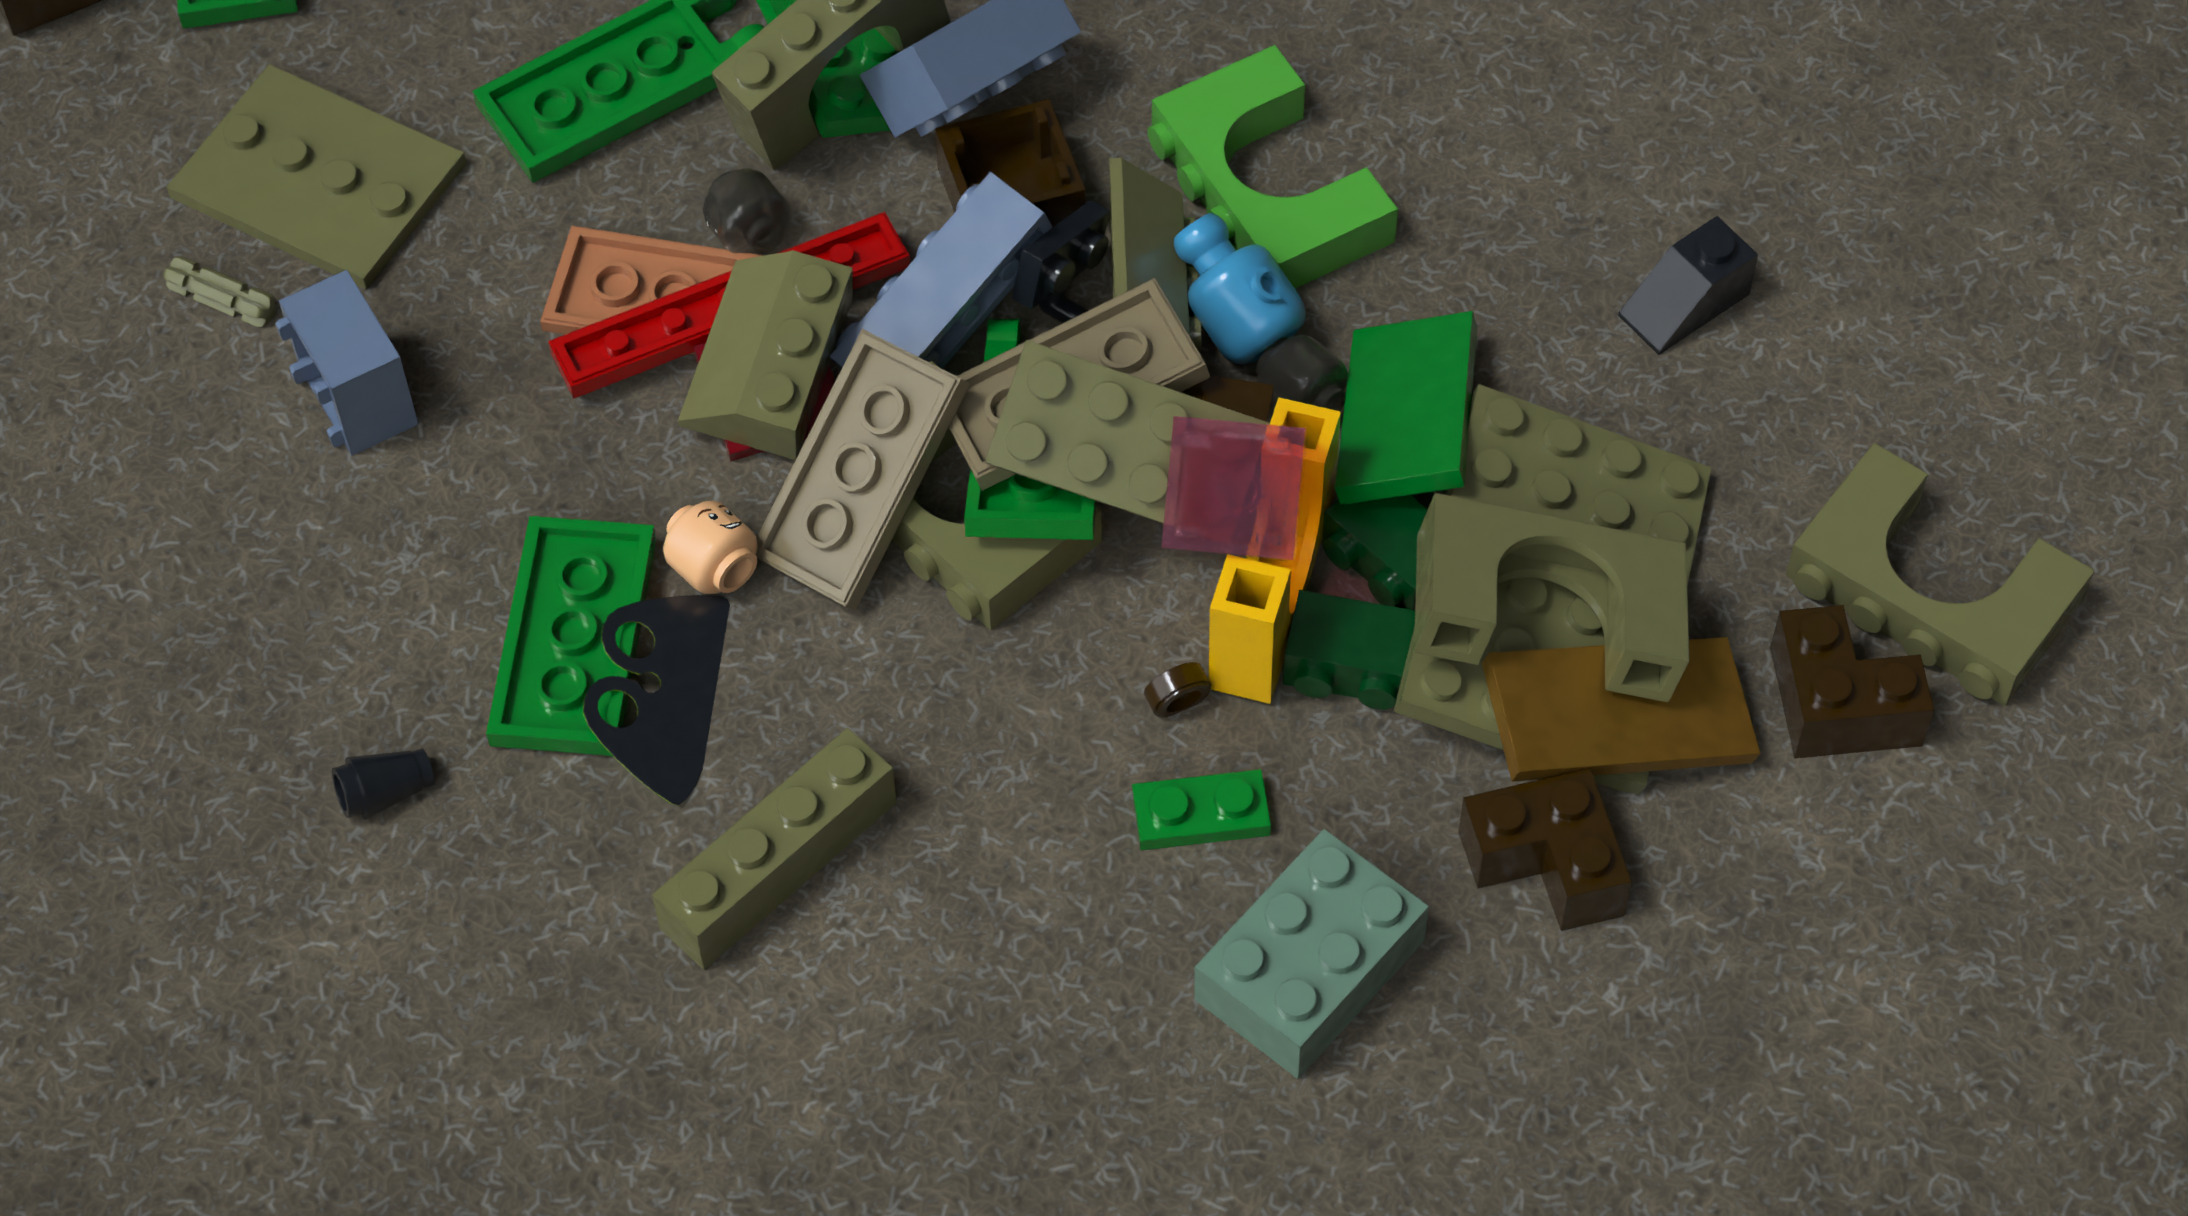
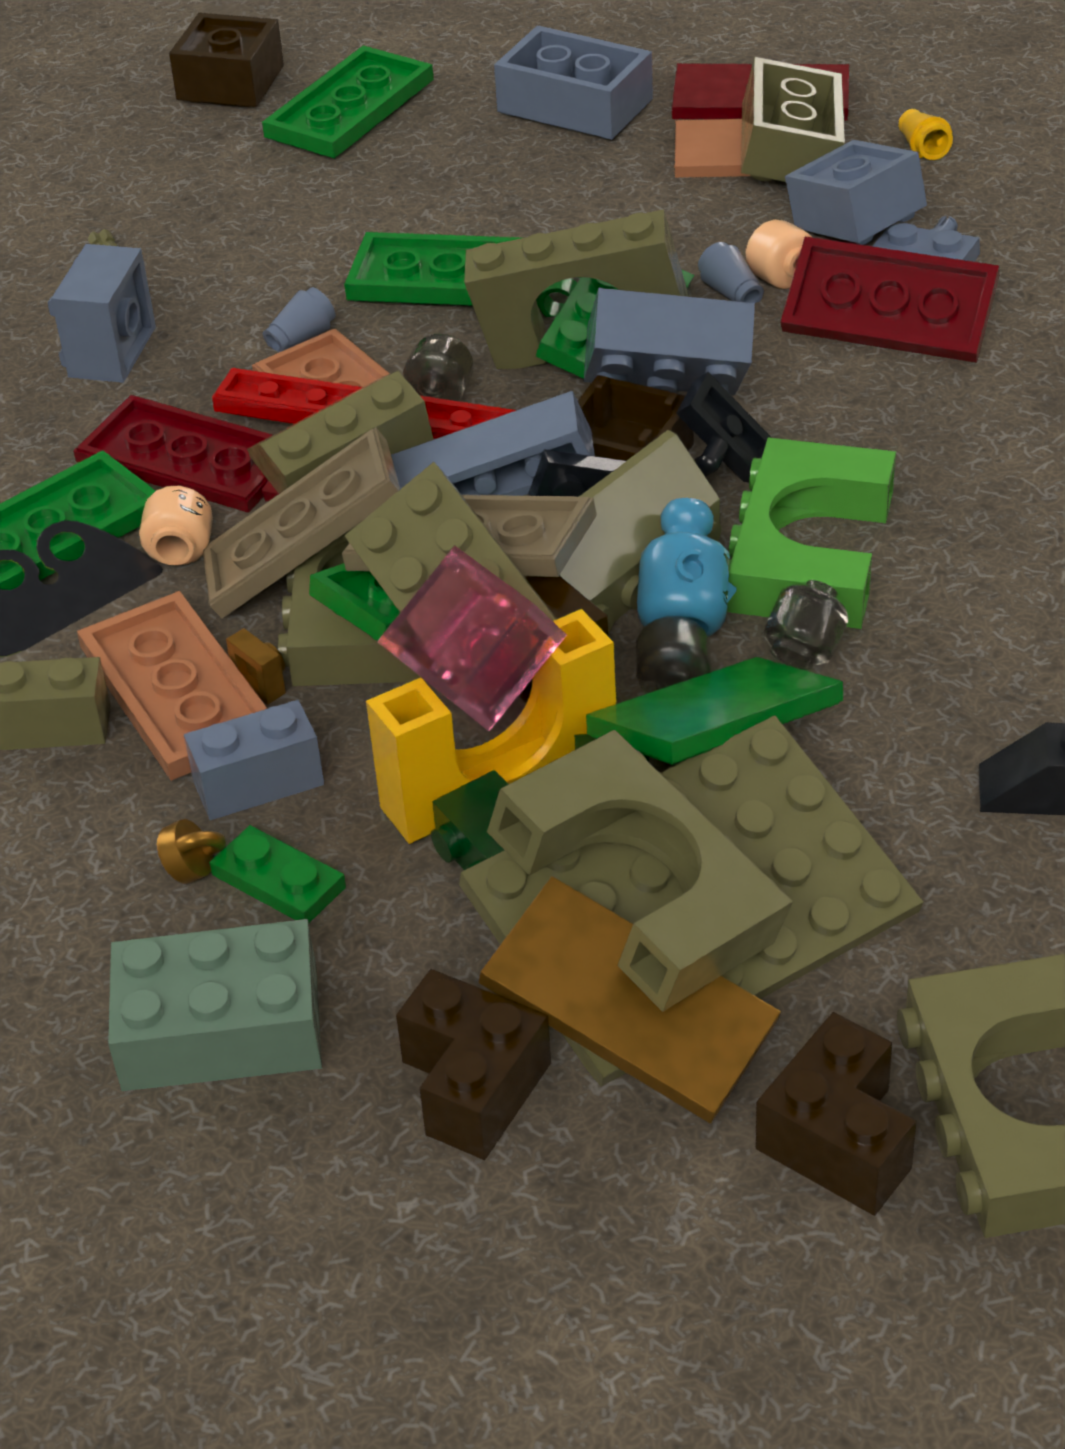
camera: 45 degrees right, 15 degrees down
(317, 175) = (236, 236): olive plate -> none
(528, 238) = (300, 320): none -> sand blue cone
(590, 461) = (181, 449): none -> dark red tile
(903, 699) = (168, 675): none -> nougat plate
(959, 634) = (258, 663): none -> pearl gold plate
(1074, 723) = (254, 759): none -> sand blue brick
(1102, 114) = (724, 426): none -> black plate
(1117, 844) = (188, 850): none -> pearl gold tile
(1177, 689) = (349, 787): dark brown tile -> none
(1376, 273) = (806, 624): none -> clear smoke head

